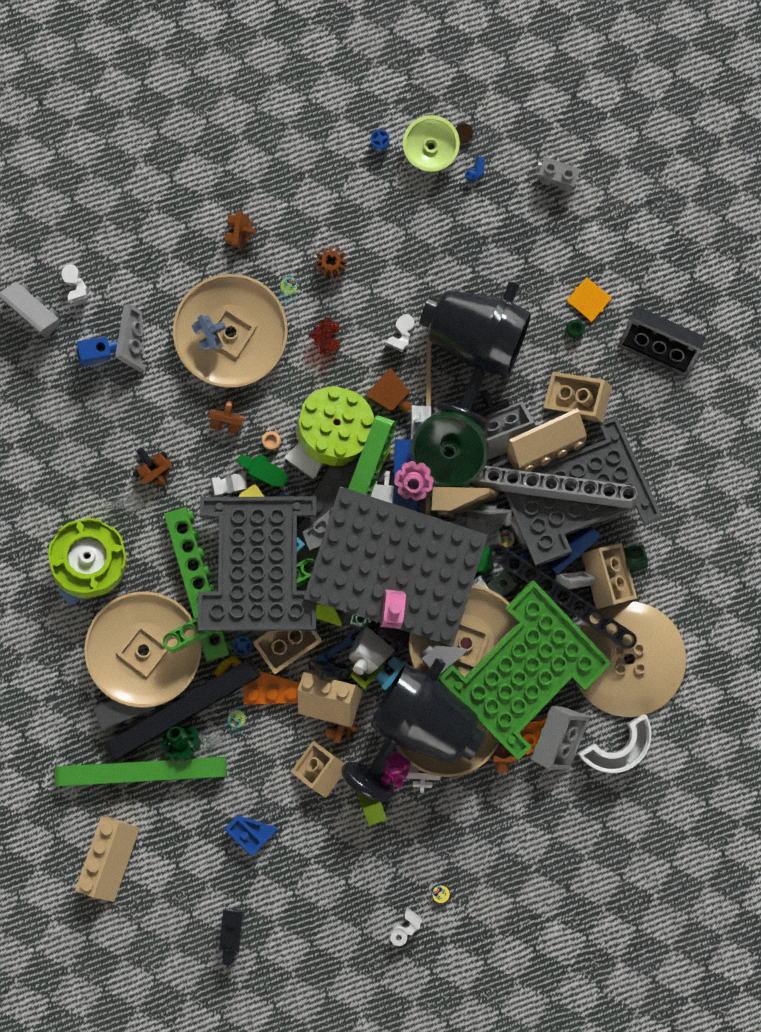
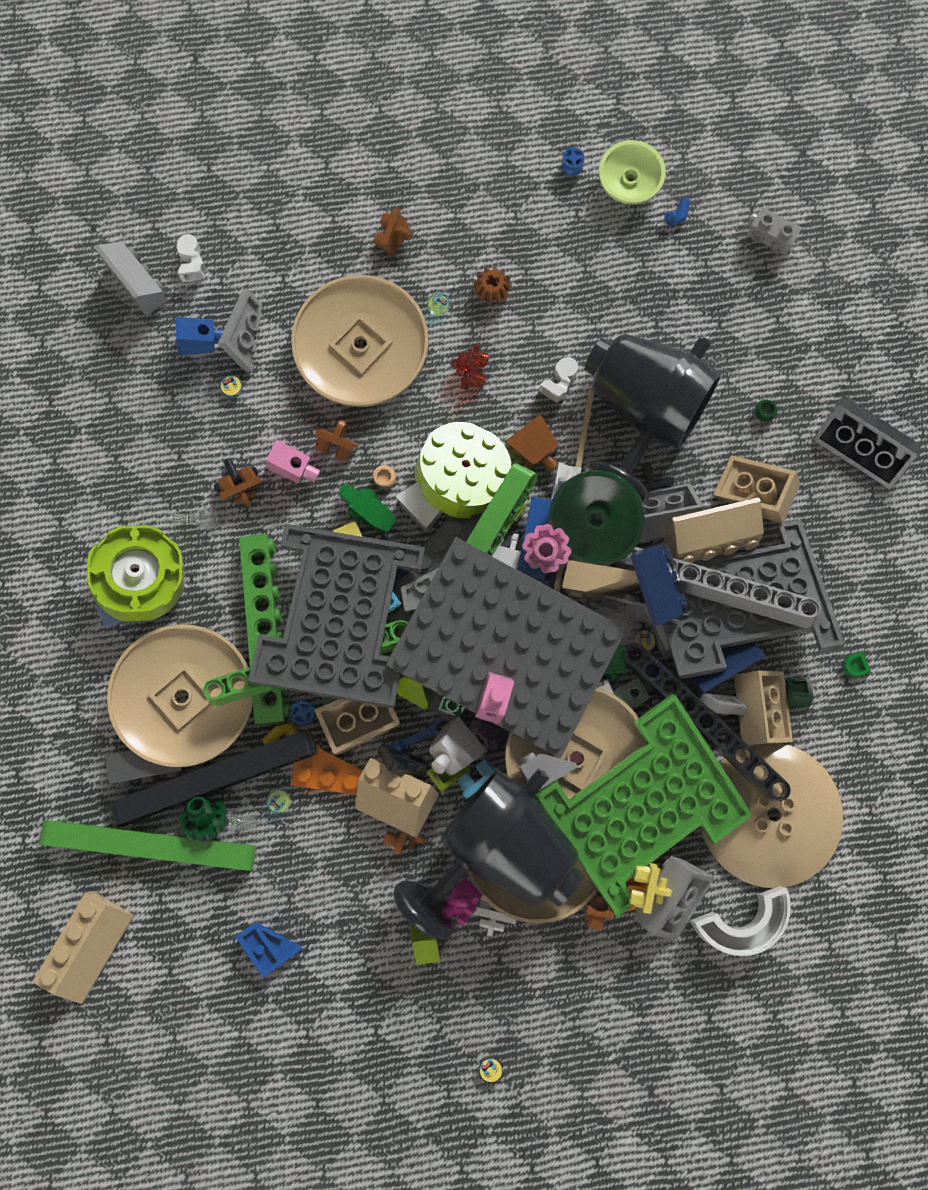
camera: 10 degrees right, 5 degrees down
(130, 387) = (231, 386): none -> tile
(185, 444) = (281, 459): none -> bright pink torso
(212, 339) = (337, 333): sand blue hips -> none
(231, 484) = (327, 518): white leg -> none
(231, 934) = (217, 1073): black hinge -> none
(318, 769) = (367, 882): tan slope -> none
(400, 932) = (431, 1110): white leg -> none
(465, 132) = (673, 170): dark brown tile -> none
(506, 495) = (659, 583): none -> dark blue slope
(536, 723) = (645, 898): none -> light yellow hips
(589, 299) = (786, 380): light orange piece -> none
(679, 527) = (856, 665): none -> green tile

